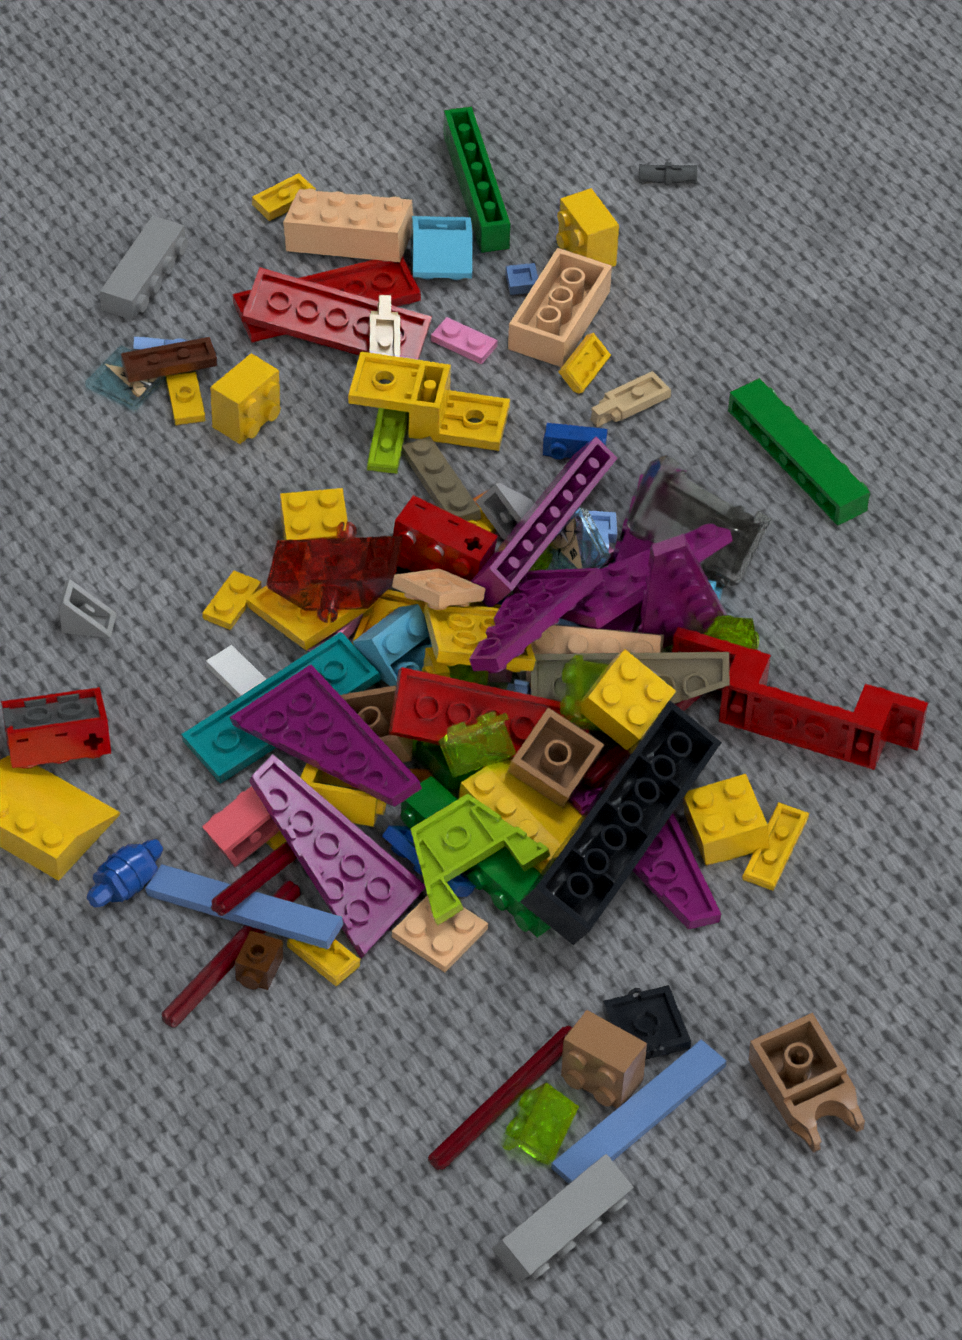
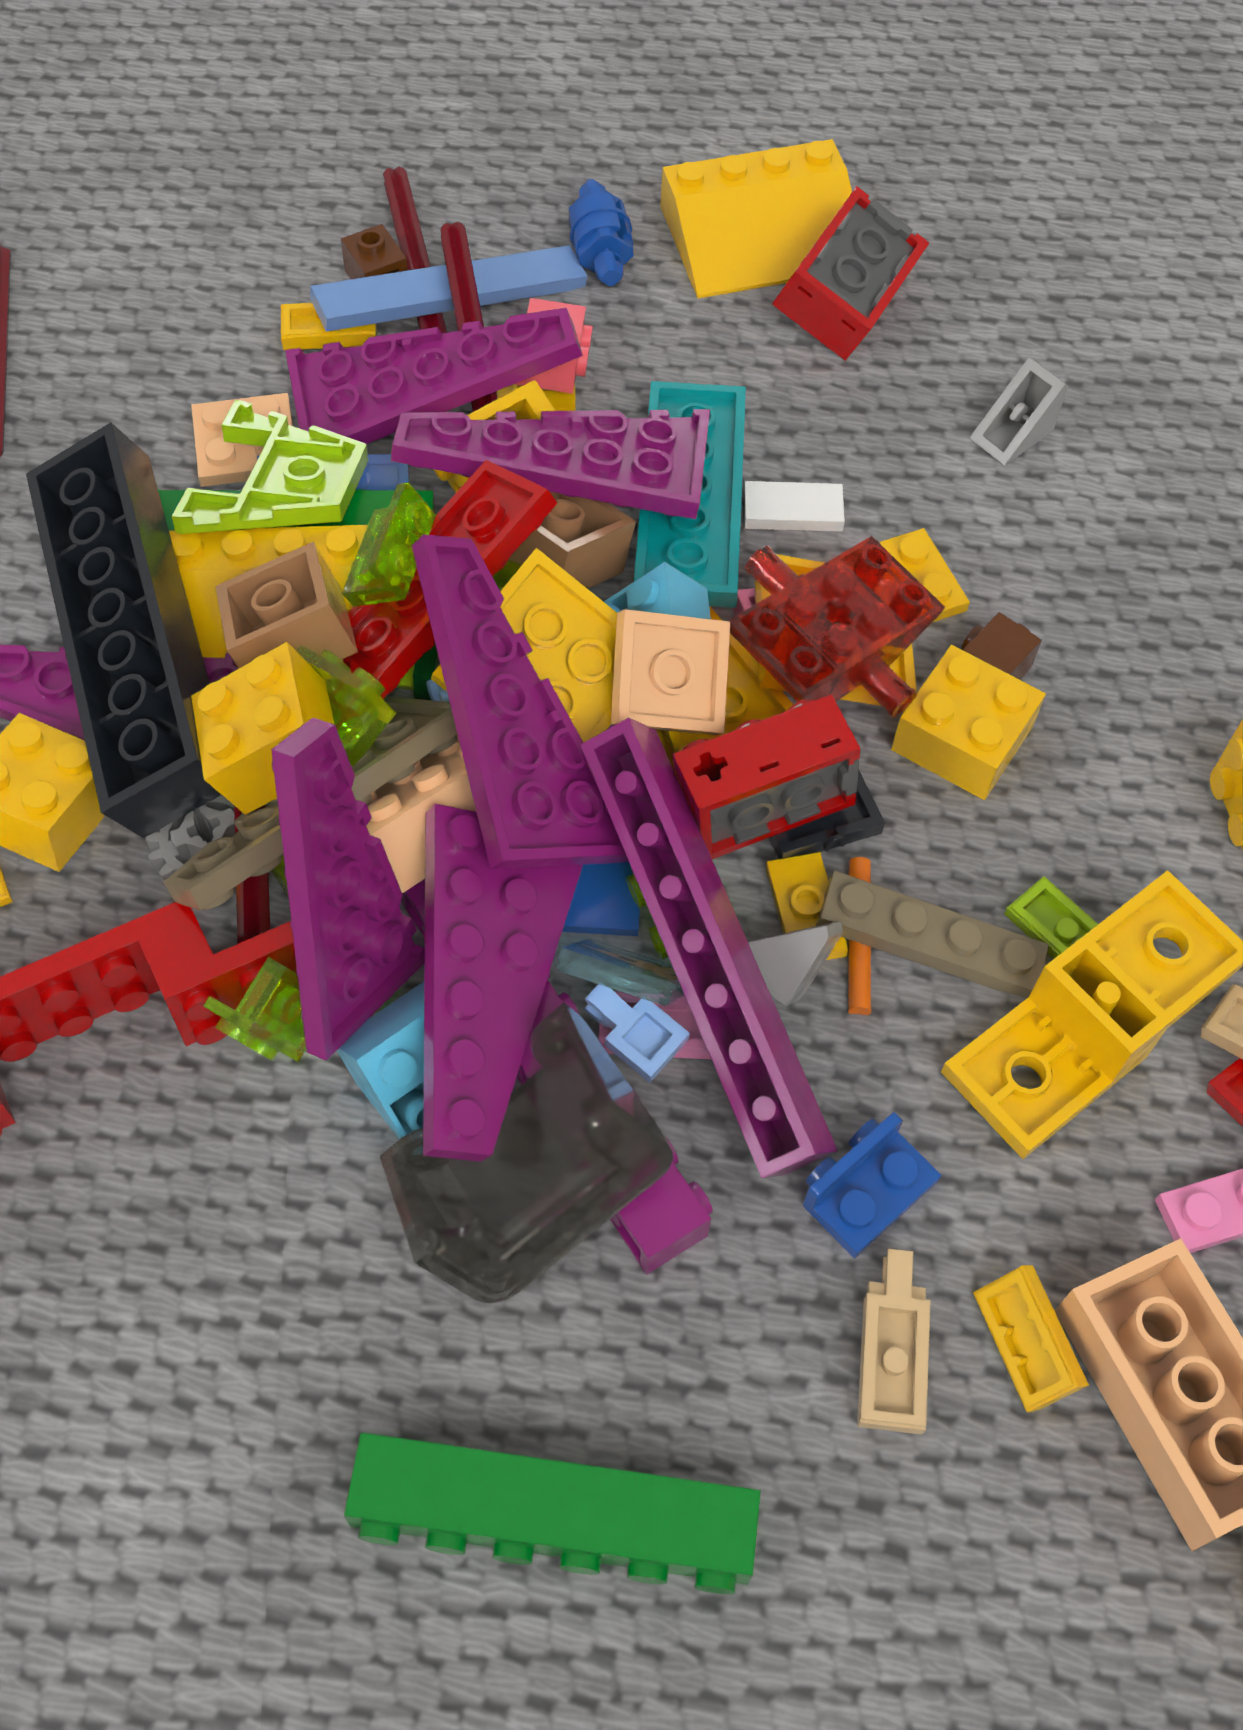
camera: 130 degrees right, 10 degrees up
(259, 537) = (1003, 645): none -> reddish brown brick

